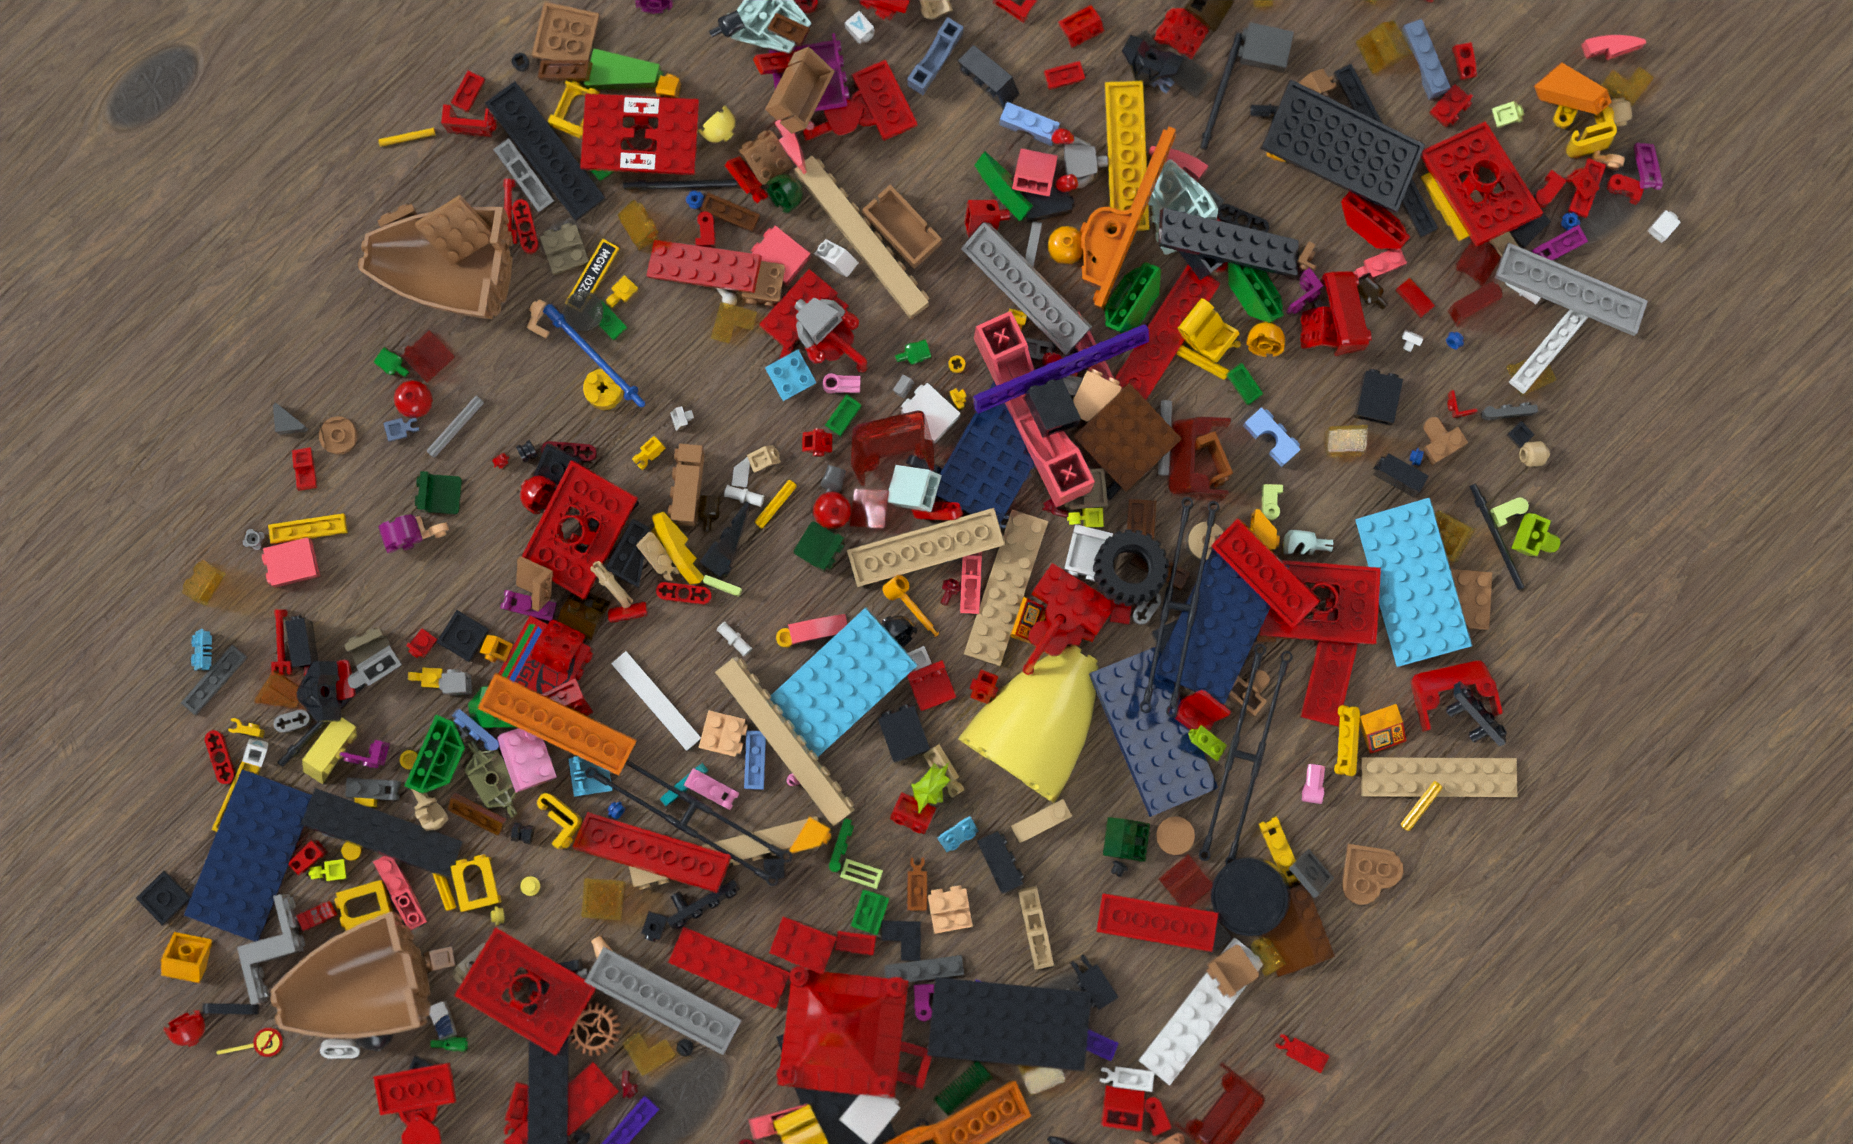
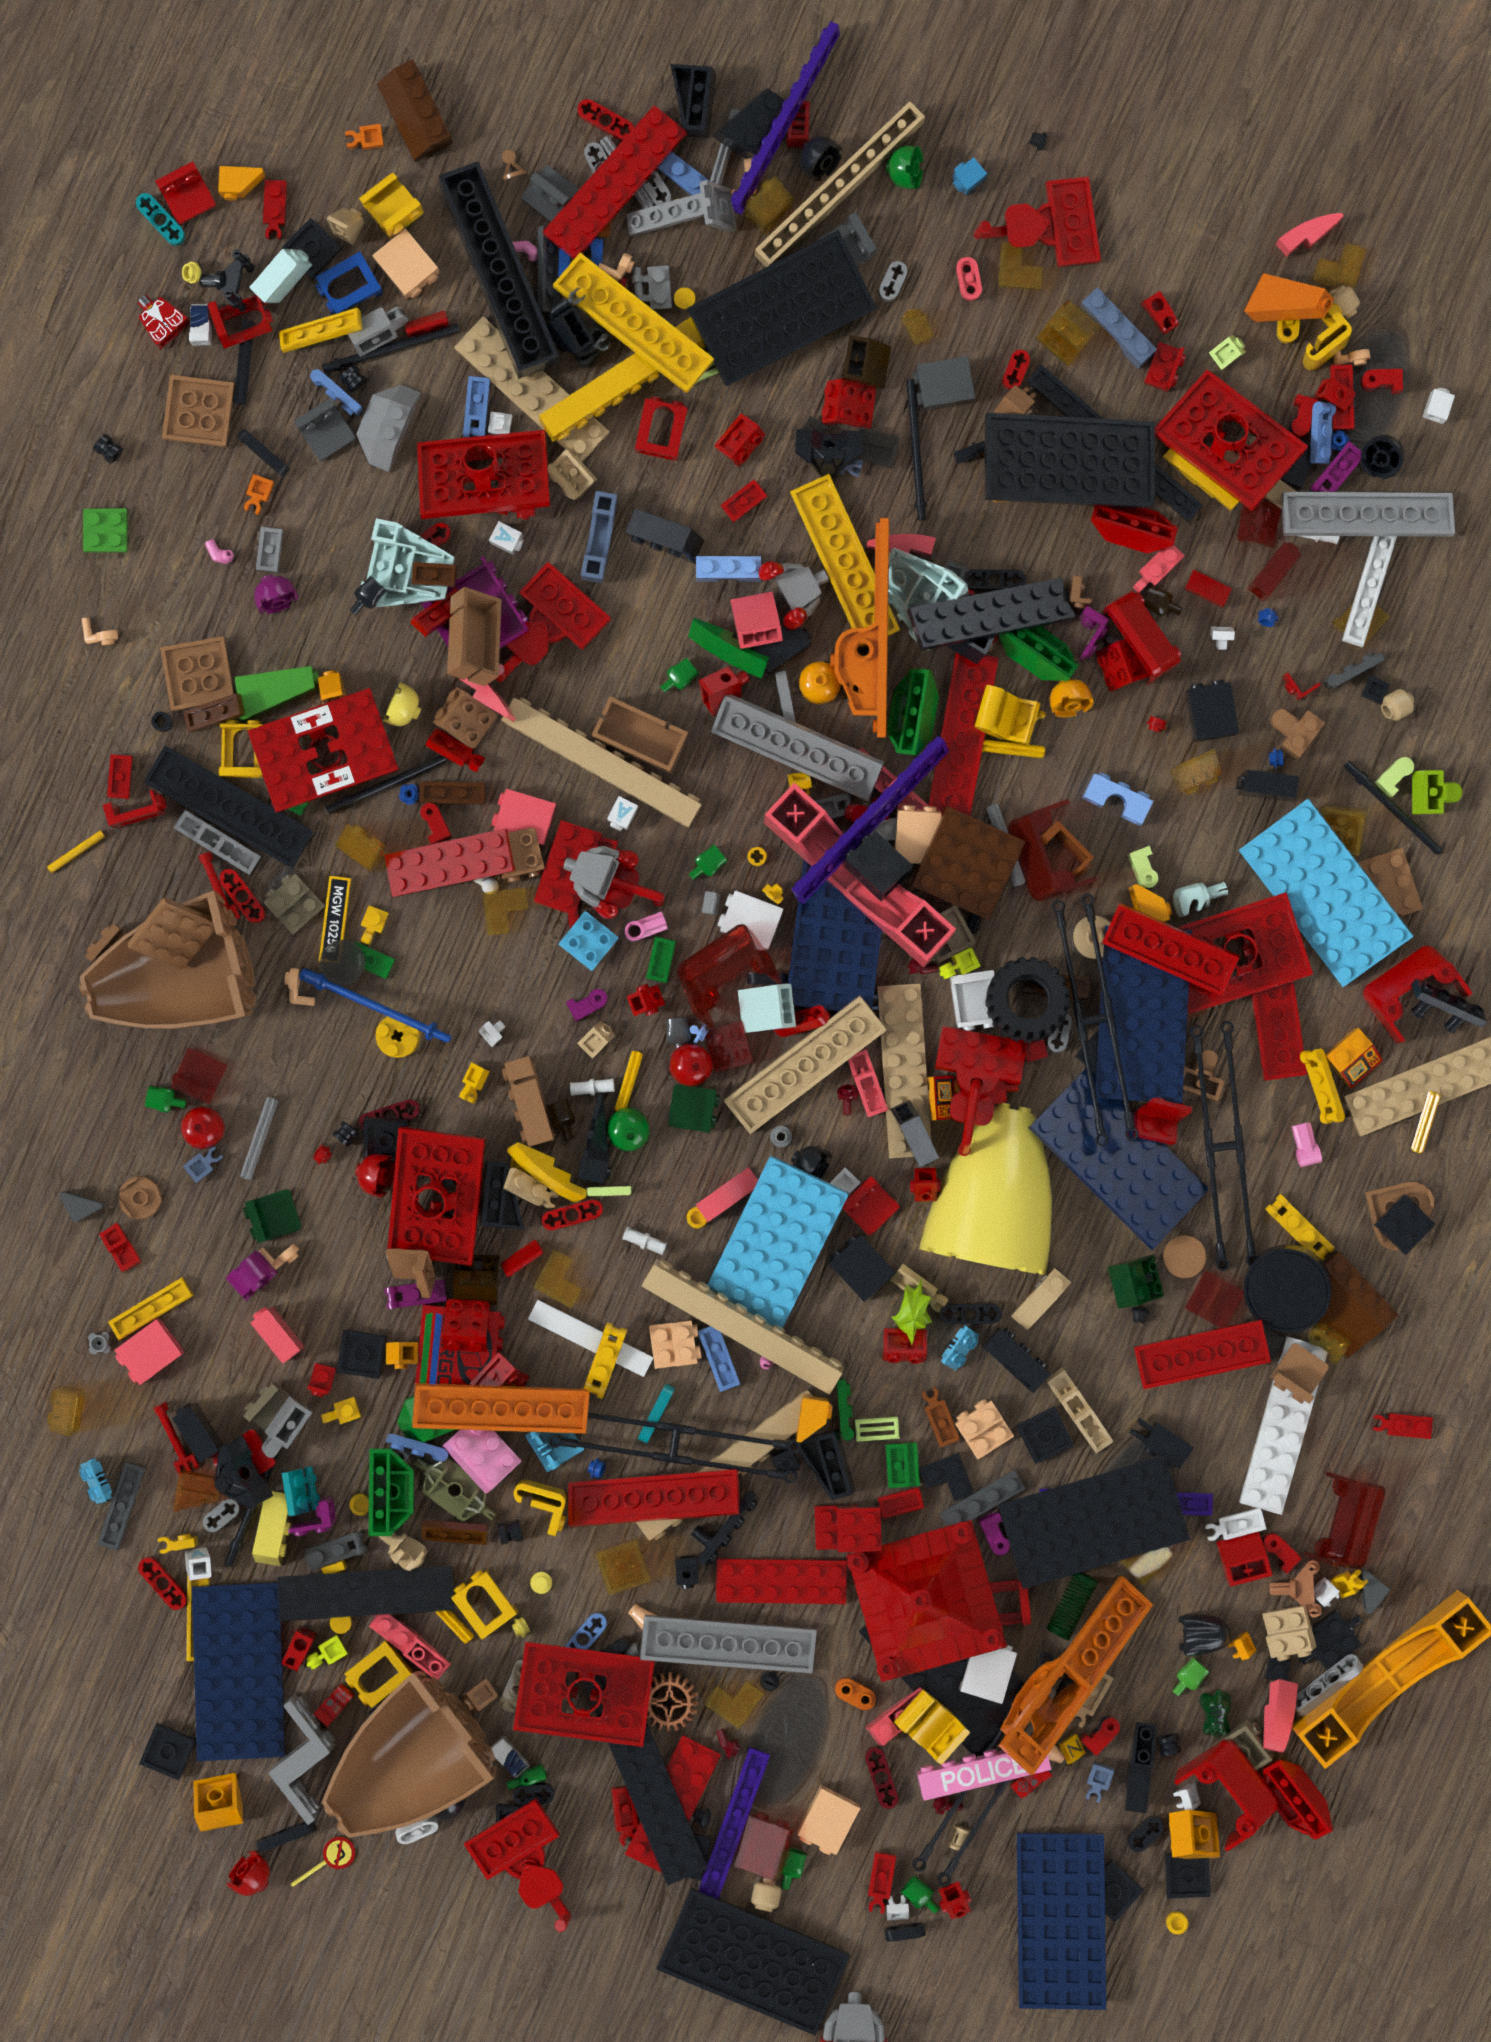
camera: 25 degrees left, 5 degrees up
(360, 726) = (295, 1490): none -> teal plate
(400, 590) = (277, 1334): none -> coral brick
(452, 1056) = (535, 1788): none -> black beam
(455, 683) = (375, 1407): light grey brick -> none
(561, 945) = (589, 1622): none -> medium blue beam
(607, 578) = (488, 1235): tan pin -> none
(644, 640) = (552, 1282): none -> clear yellow plate
(660, 722) = (605, 1359): none -> yellow plate
(710, 788) = (686, 1406): bright pink plate -> none
(740, 473) = (579, 1064): white sticker -> none
(752, 1087) = (855, 1694): none -> orange plate
(758, 541) = (628, 1129): none -> green cylinder
(768, 428) = (590, 1004): none -> magenta leg
(785, 191) = (501, 747): dark green cylinder -> none
(809, 884) = (829, 1463): none -> black wedge
(836, 257) = (584, 795): white slope -> none
(850, 488) = (700, 1033): none -> light blue plate
(861, 285) = (622, 814): none -> white brick
(877, 604) = (773, 1136): none -> light grey plate
(896, 589) = (793, 1119): light orange piece -> none
(954, 193) = (680, 675): none -> green piece
(989, 819) = (986, 1319): none -> black beam
(992, 640) = (914, 1133): none -> slope
(998, 936) = (1044, 1435): none -> black plate
(1141, 516) = (1015, 939): reddish brown plate -> none
(1207, 742) = (1179, 1148): lime hinge -> none
(1244, 384) = (1066, 754): green plate -> none
(1311, 873) = (1340, 1238): dark grey plate -> none
(1326, 57) = (1011, 368): none -> red beam
(1328, 389) = (1156, 724): none -> red plate
(1369, 883) = (1404, 1224): none -> black plate
(1559, 208) = (1321, 432): none -> medium blue plate
(1601, 247) = (1382, 456): none -> black cylinder
(1648, 166) = (1397, 348): magenta plate -> none

